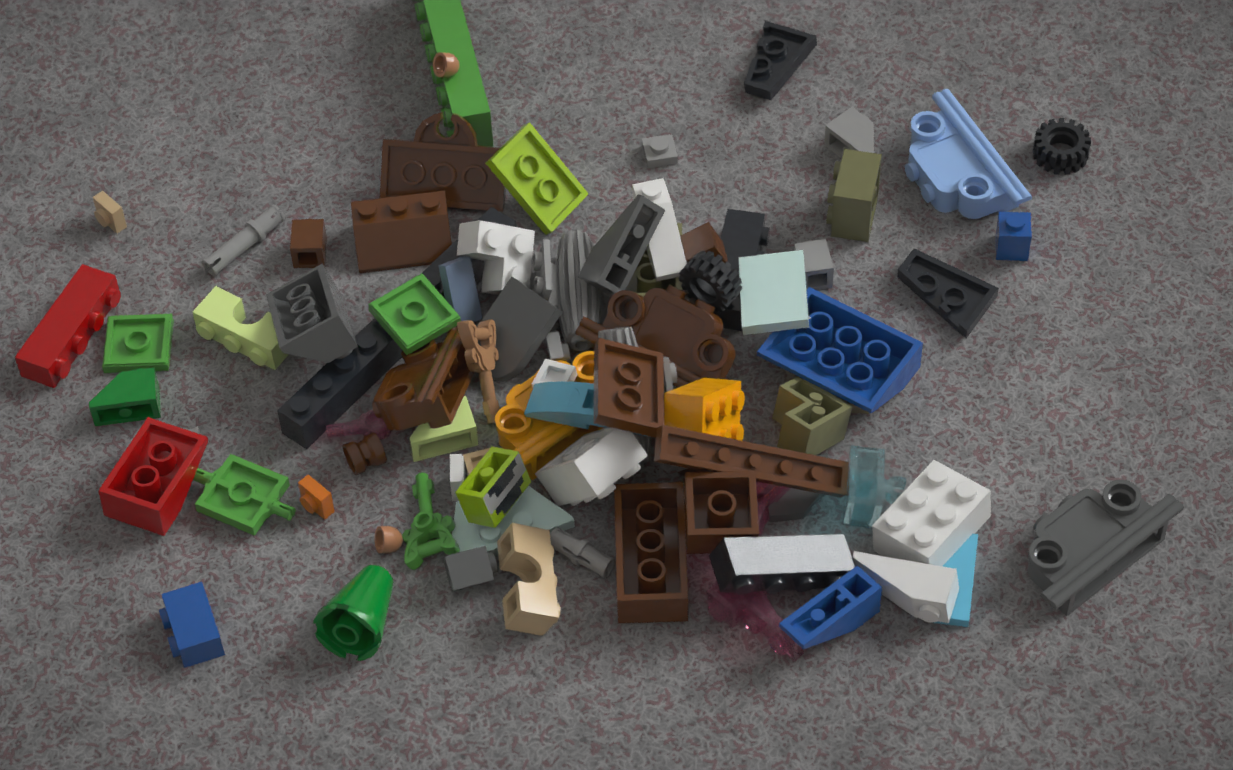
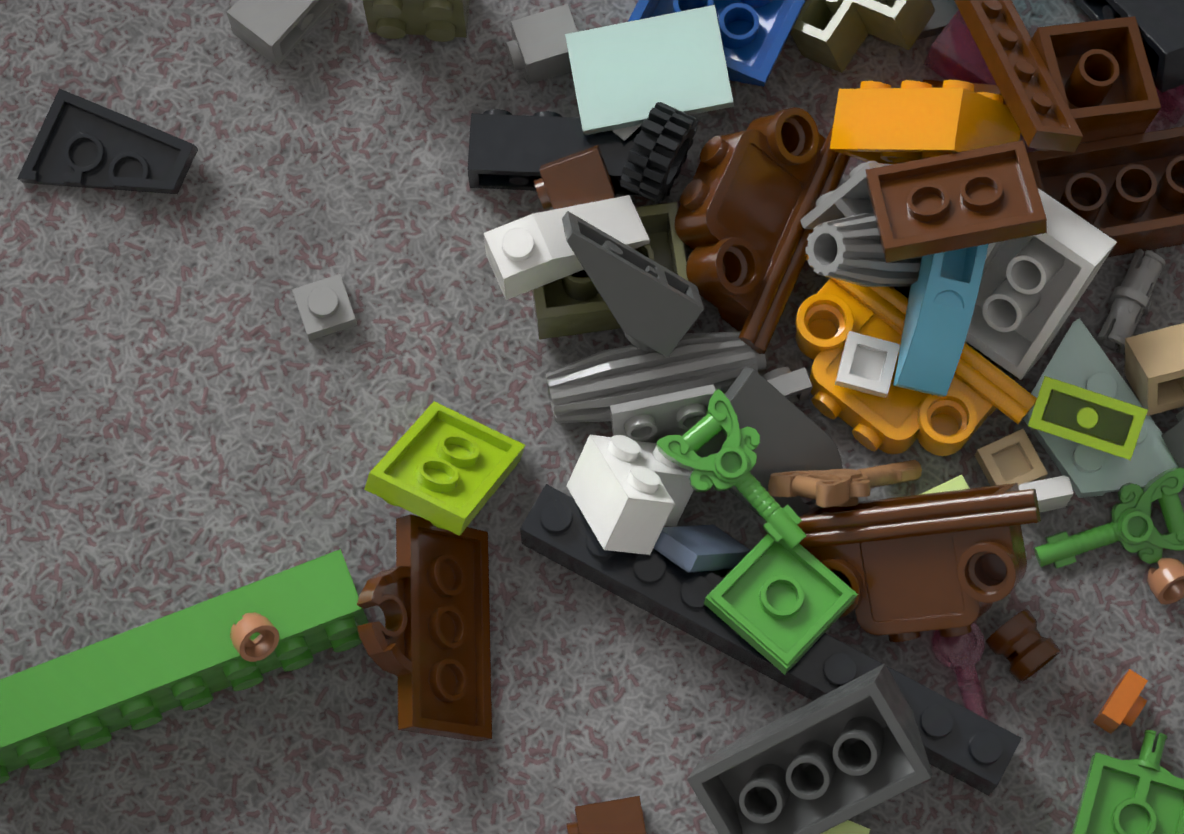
camera: 100 degrees left, 20 degrees up
(400, 231) = (567, 679): reddish brown slope -> none
(498, 290) = (730, 466): none -> bright green piece

